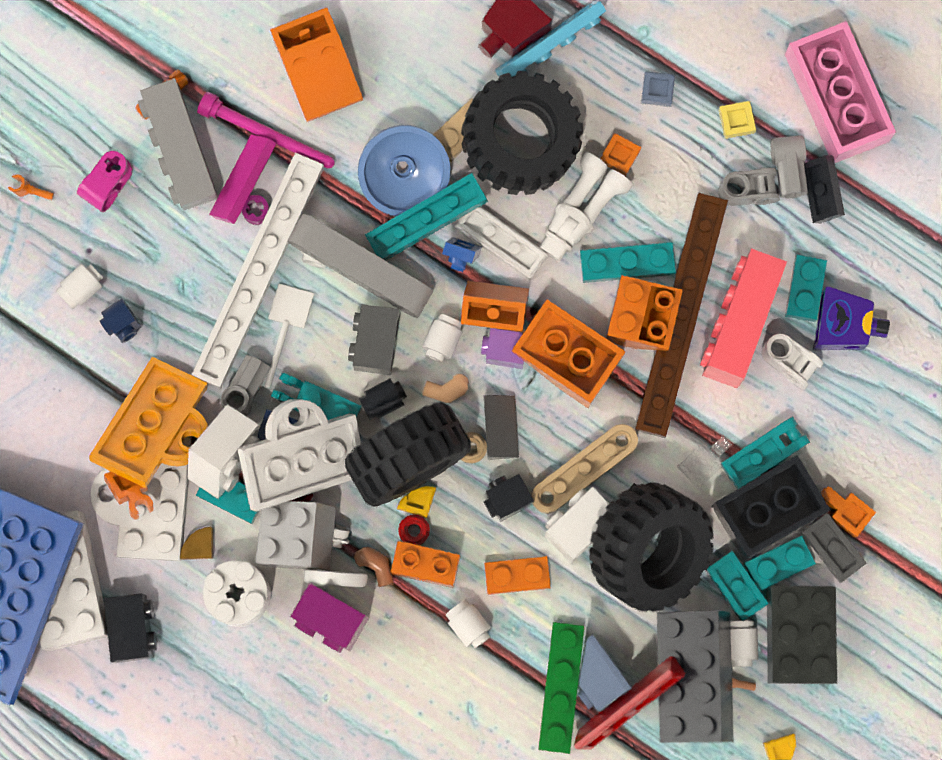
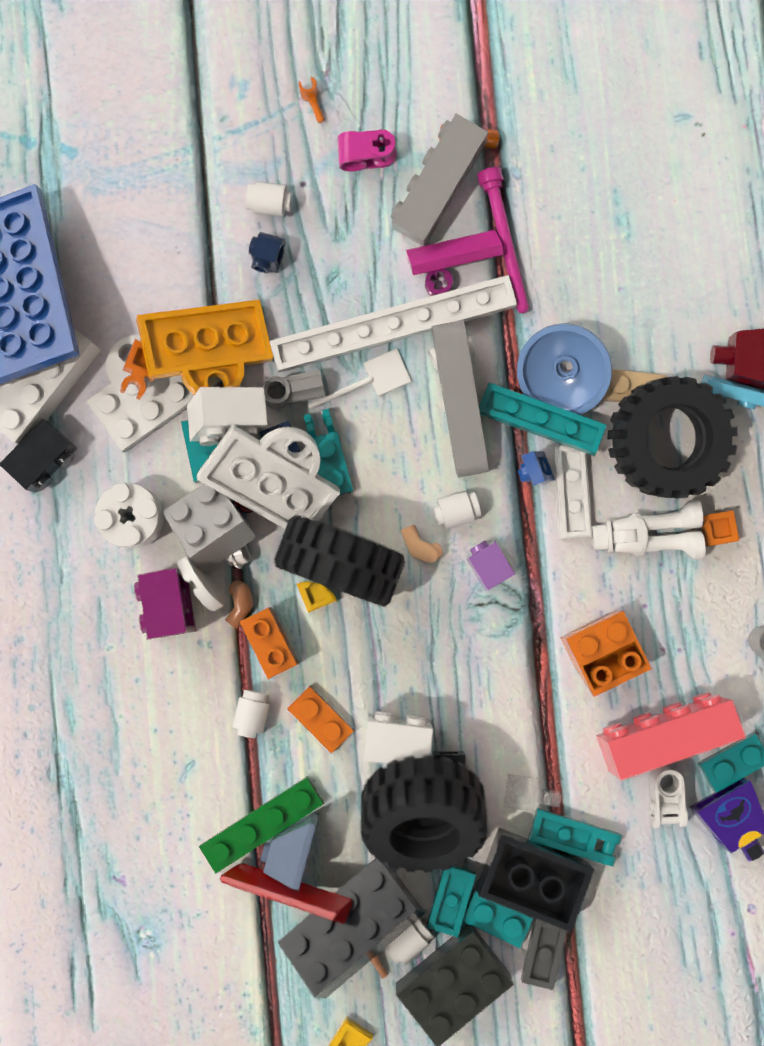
camera: 50 degrees right, 5 degrees up
(198, 545) = (145, 456): pearl gold tile -> none
(316, 64) = (592, 232): orange slope -> none
(375, 339) = (412, 458): dark grey brick -> none
(383, 399) = (371, 503): black brick -> none
(414, 520) = (280, 610): red plate -> none
(481, 448) = (397, 610): tan plate -> none
(494, 306) = (515, 530): orange brick -> none
(501, 427) = (425, 611): dark grey slope -> none
(507, 497) = (373, 663): black brick -> none
(568, 353) = (526, 619): orange slope -> none
(584, 468) = (446, 704): tan plate -> none
(629, 261) = (637, 604): teal plate -> none
(692, 279) = (666, 667): reddish brown plate -> none
(850, 512) = (583, 942): orange plate -> none

